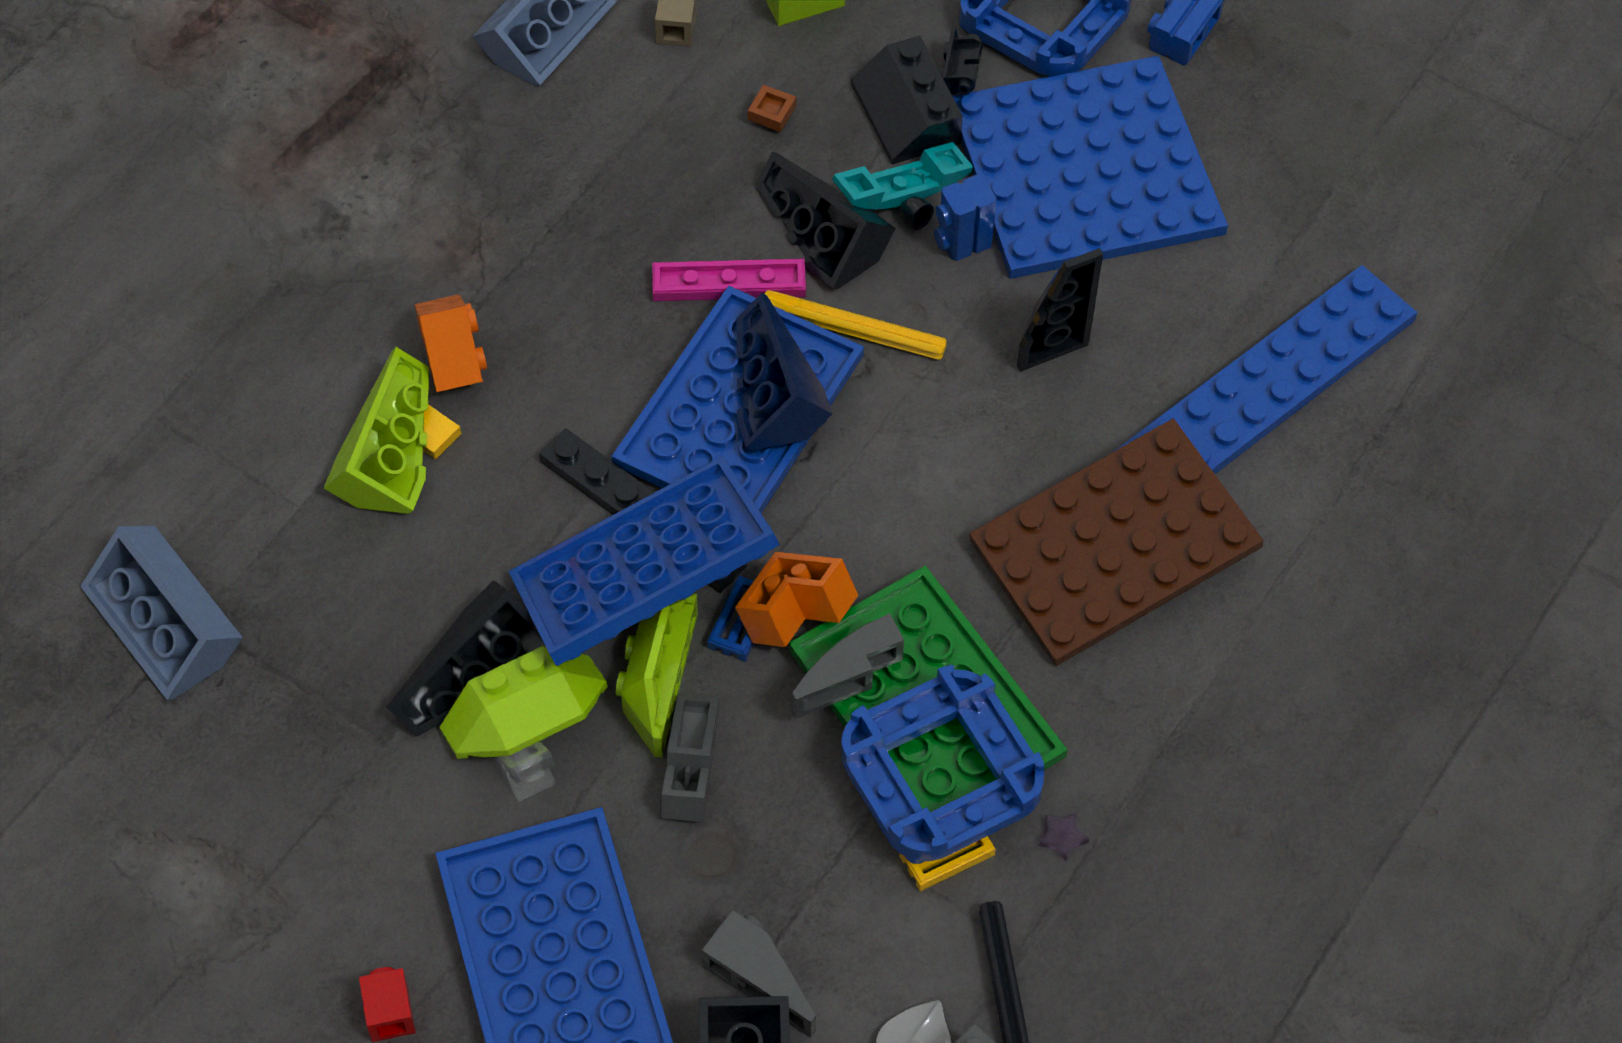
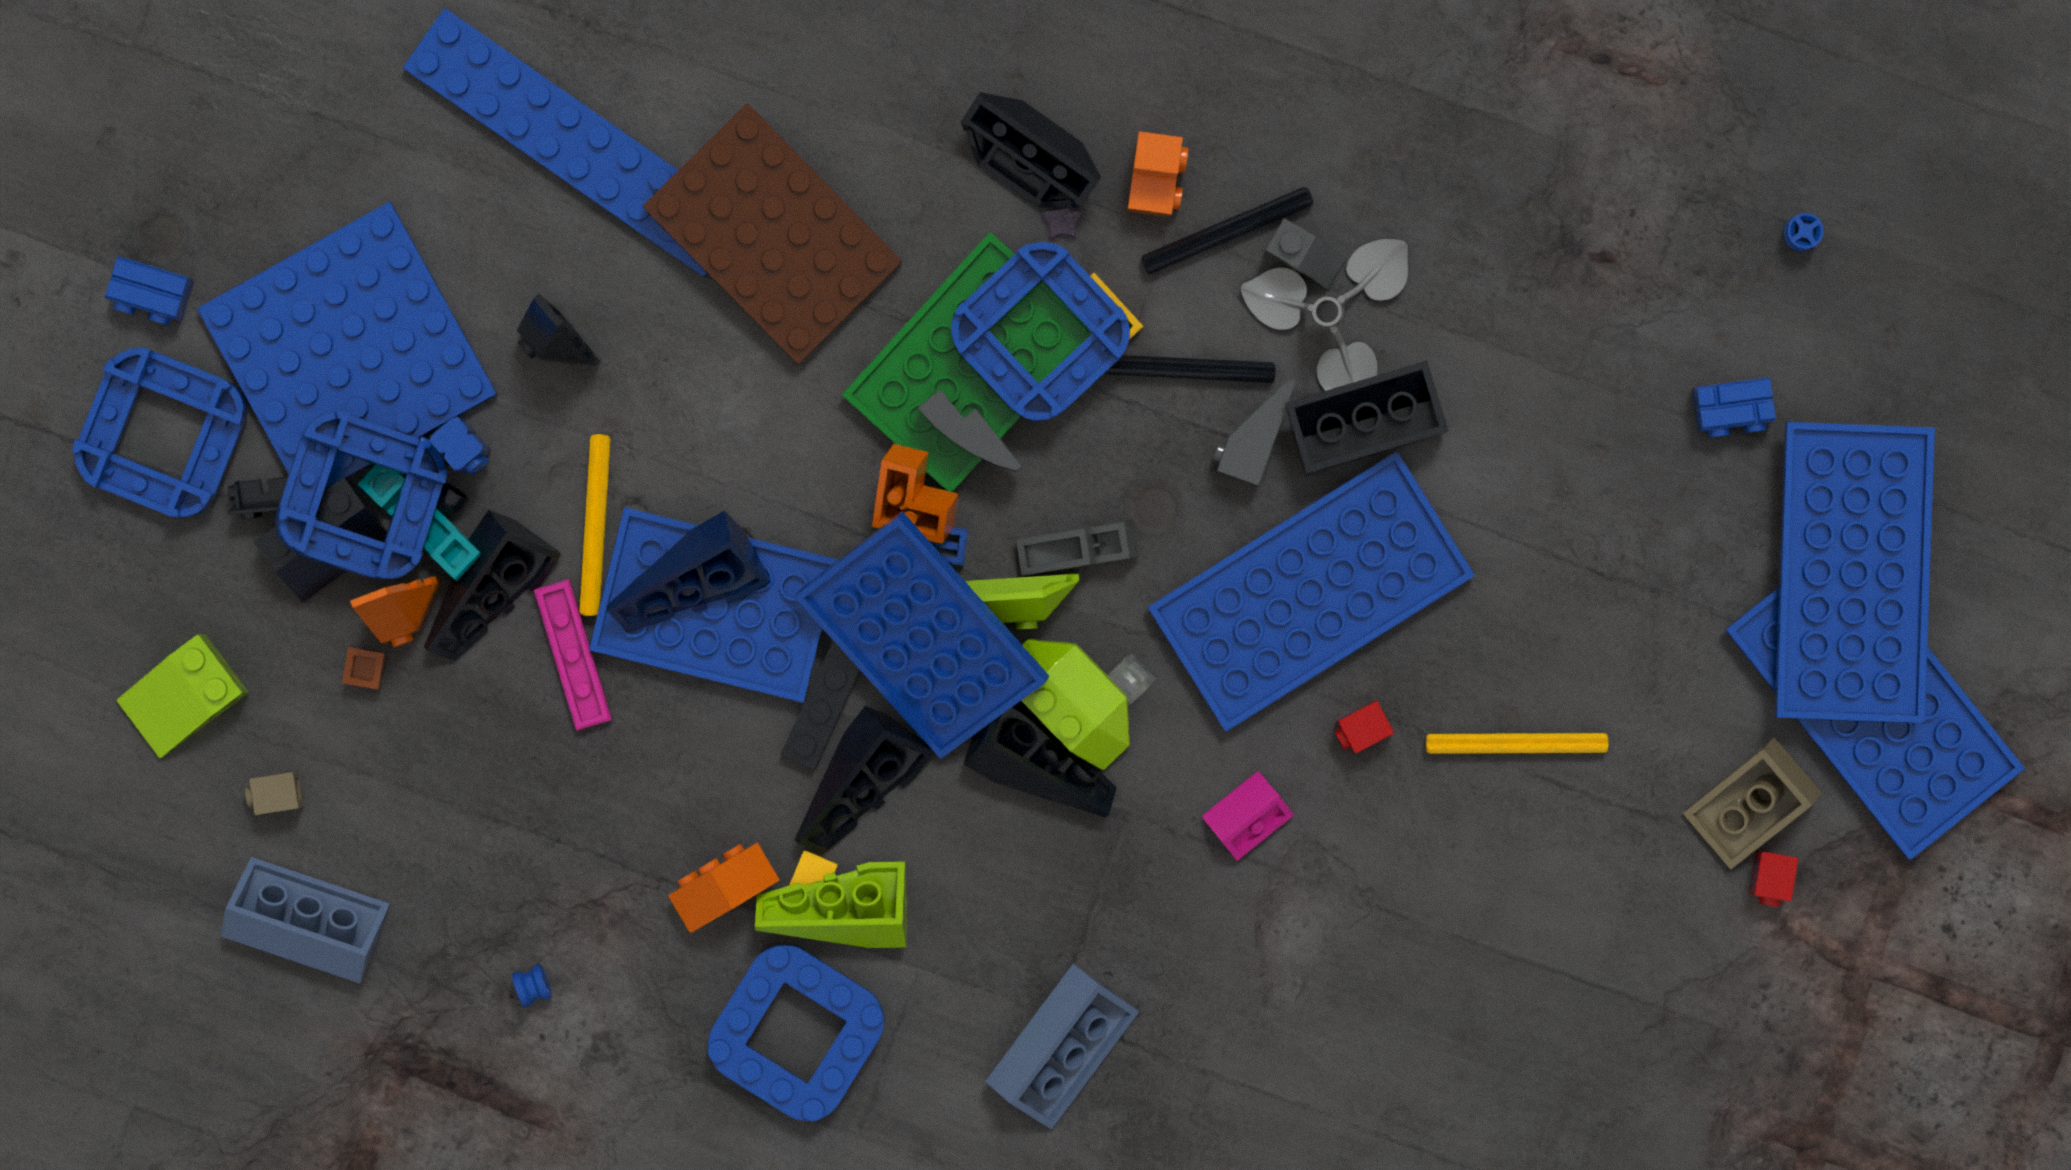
camera: 105 degrees left, 30 degrees up
(238, 414) = (767, 1078): none -> blue plate
(333, 856) = (1247, 815): none -> dark pink panel
(416, 170) = (532, 985): none -> blue wheel
(517, 493) = (866, 766): none -> black wedge
(817, 119) = (398, 609): none -> orange wedge
(857, 928) = (1194, 368): none -> black axle
(960, 73) = (377, 445): none -> blue plate
(1093, 934) = (1155, 174): none -> orange brick
(1153, 807) = (1029, 152): none -> black wedge

